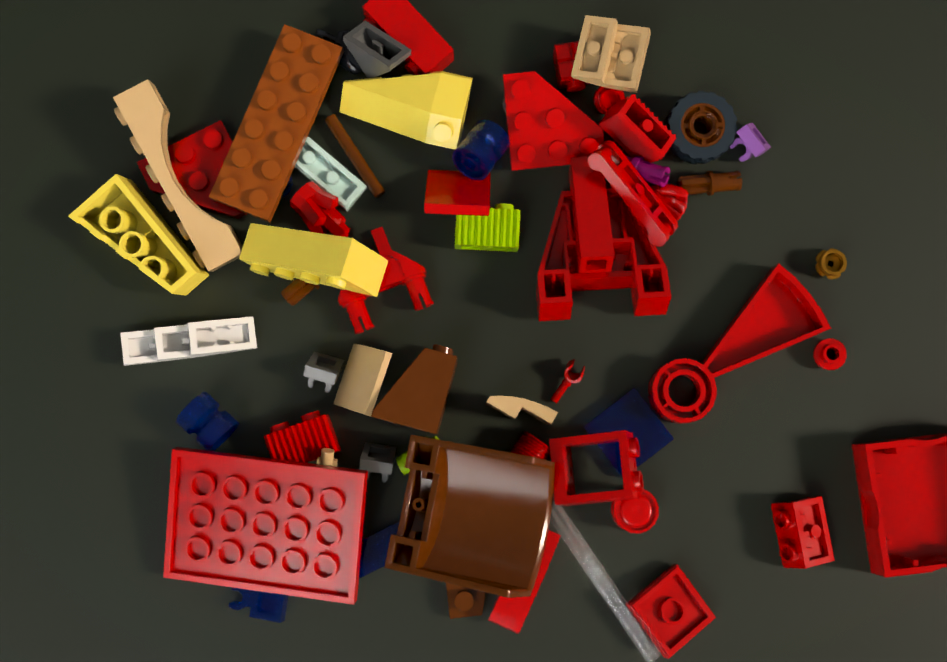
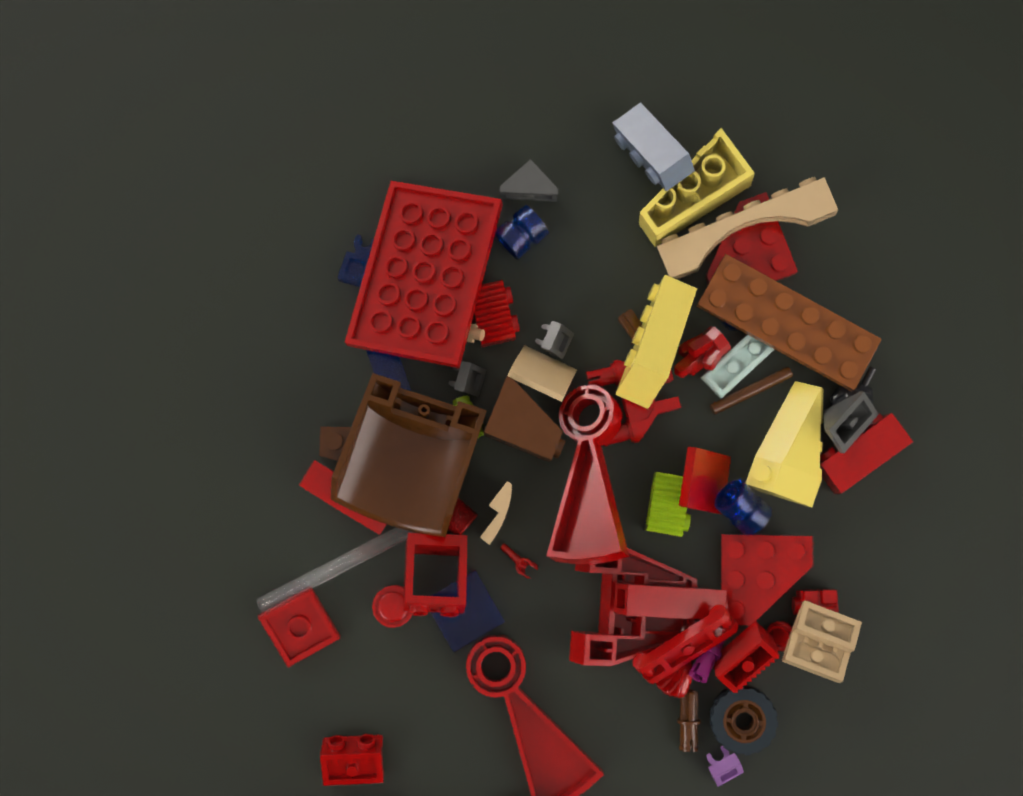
camera: 100 degrees right, 0 degrees up
(97, 287) = (652, 147): none -> brick
(153, 420) = (529, 184): none -> dark grey slope
(188, 340) = (597, 223): white slope -> none
(515, 310) = (588, 518): none -> red piece

